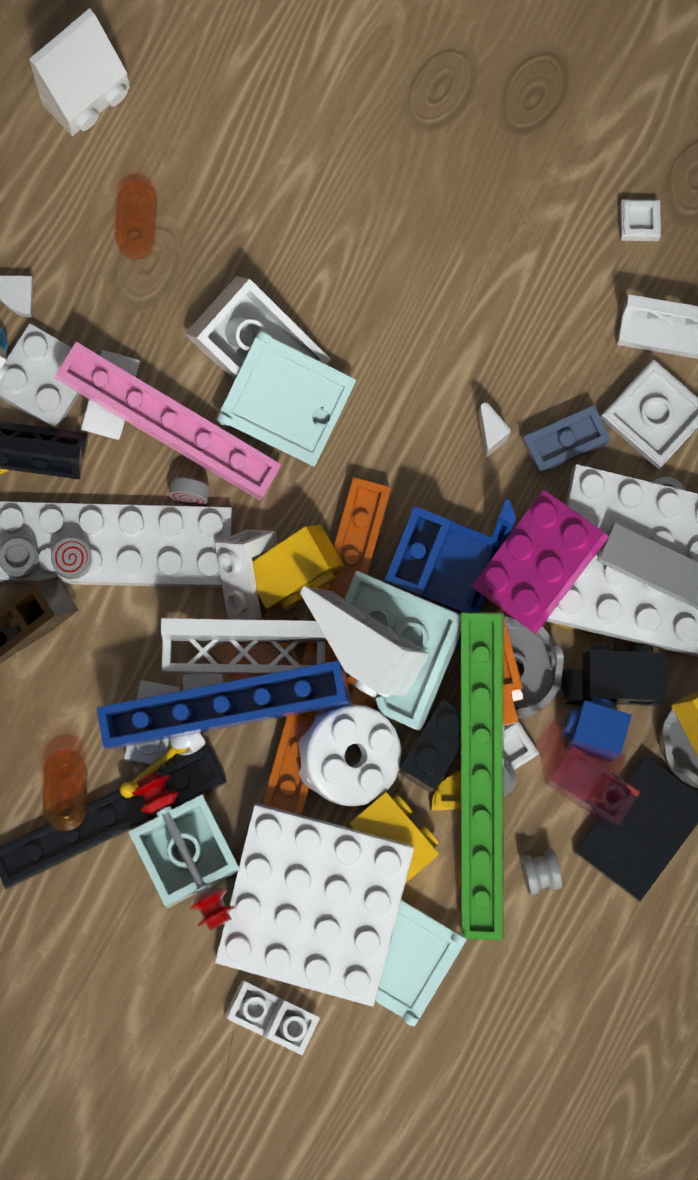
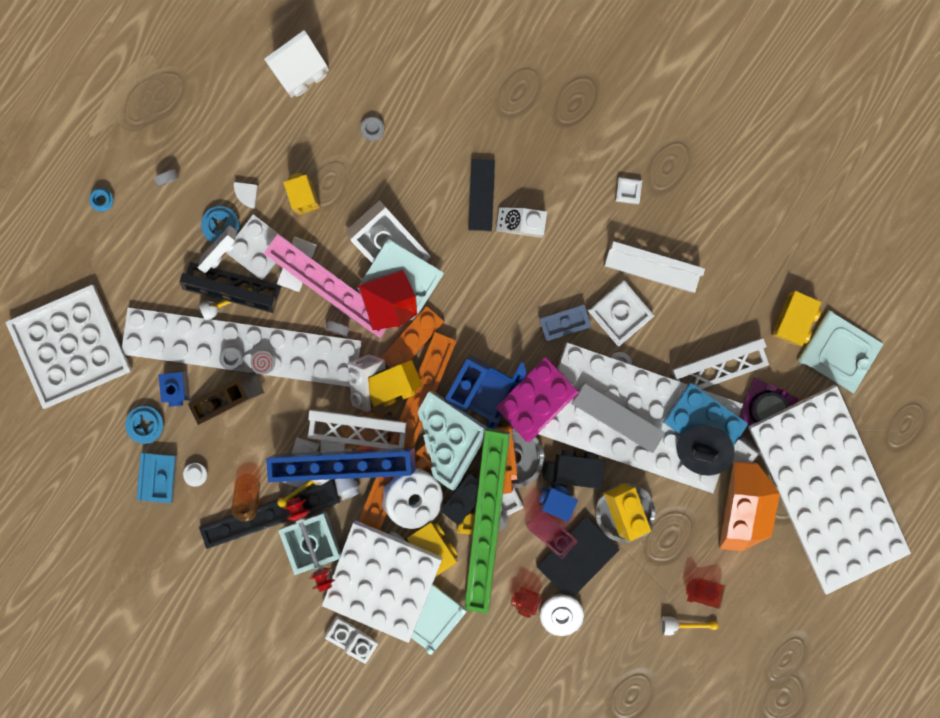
camera: 15 degrees right, 10 degrees up
(108, 277) = (301, 194): none -> yellow brick
(136, 217) = (324, 155): clear orange plate -> none
(211, 169) = (372, 128): none -> light grey tile
(234, 750) = (347, 488): none -> white cone
(271, 431) = (388, 300): none -> red slope
(319, 490) = (413, 338): none -> orange plate
(364, 646) = (425, 439): white slope -> none
(402, 253) = (481, 195): none -> black tile
(474, 285) = (521, 221): none -> white slope
(492, 428) = (521, 312): white slope -> none
(541, 872) = (515, 577): light grey wheel -> none
(566, 912) = (526, 602): none -> clear red plate
(629, 929) = (561, 615): none -> white wheel

